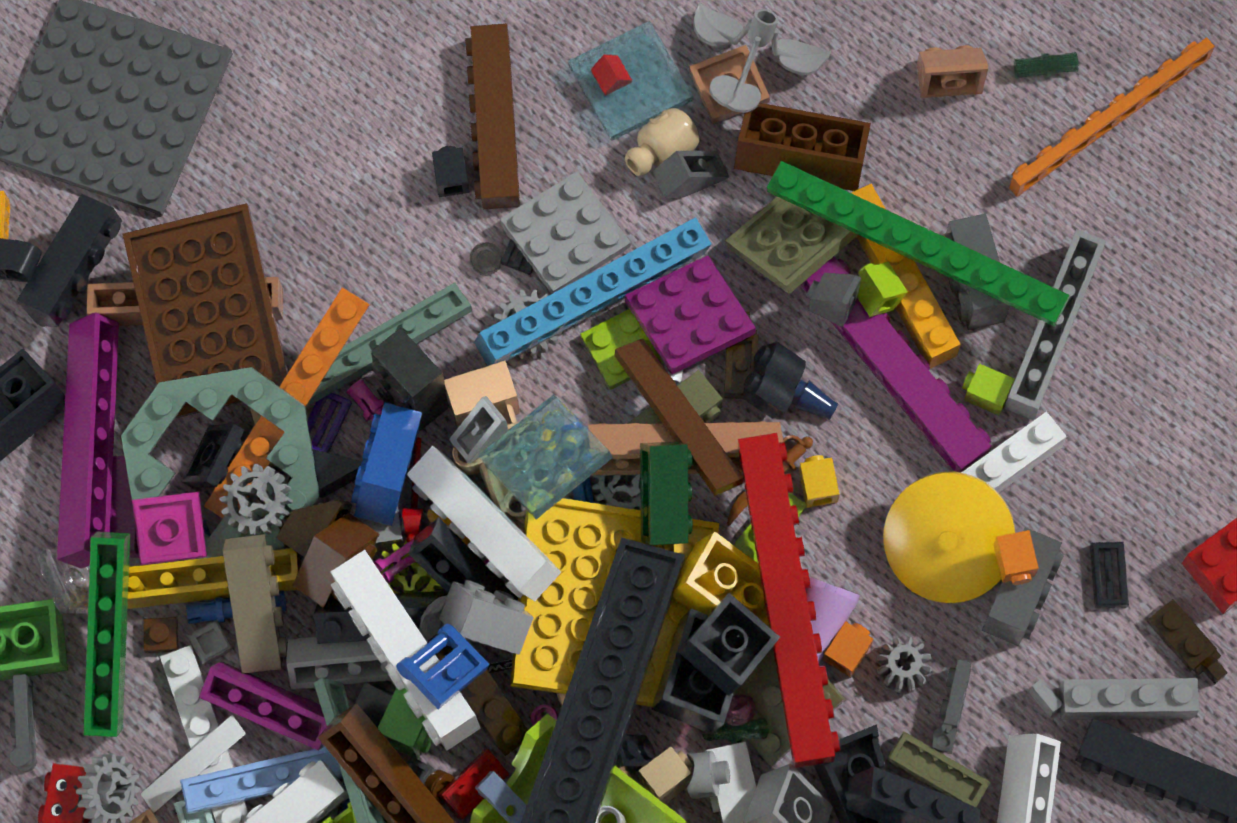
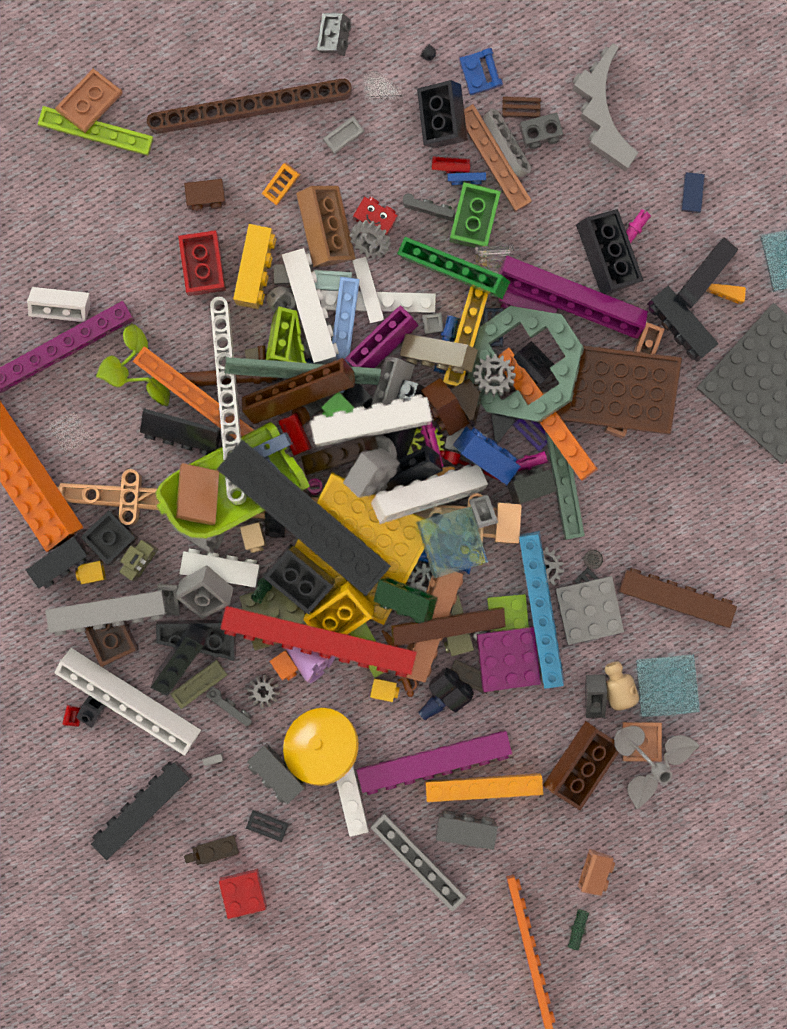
camera: 110 degrees right, 15 degrees up
(161, 635) = (448, 298): reddish brown plate -> none
(169, 528) = (500, 322): dark pink tile -> none
(449, 674) = (341, 439): blue plate -> none
(450, 171) = (653, 560): black brick -> none
(610, 74) = (674, 675): red slope -> none
(707, 775) = (242, 558): light grey piece -> none
(729, 644) = (301, 597): black brick -> none
(740, 710) = (271, 592): clear pink tile -> none
(788, 243) = (530, 736): olive plate -> none
(834, 296) = (481, 742): dark grey slope -> none
(880, 288) = (477, 770): lime brick -> none
(918, 243) = (492, 802): green plate -> none
(987, 388) = (398, 806): lime brick -> none
(1016, 557) = (286, 774): orange brick -> none
(1129, 699) = (193, 803): light grey brick -> none

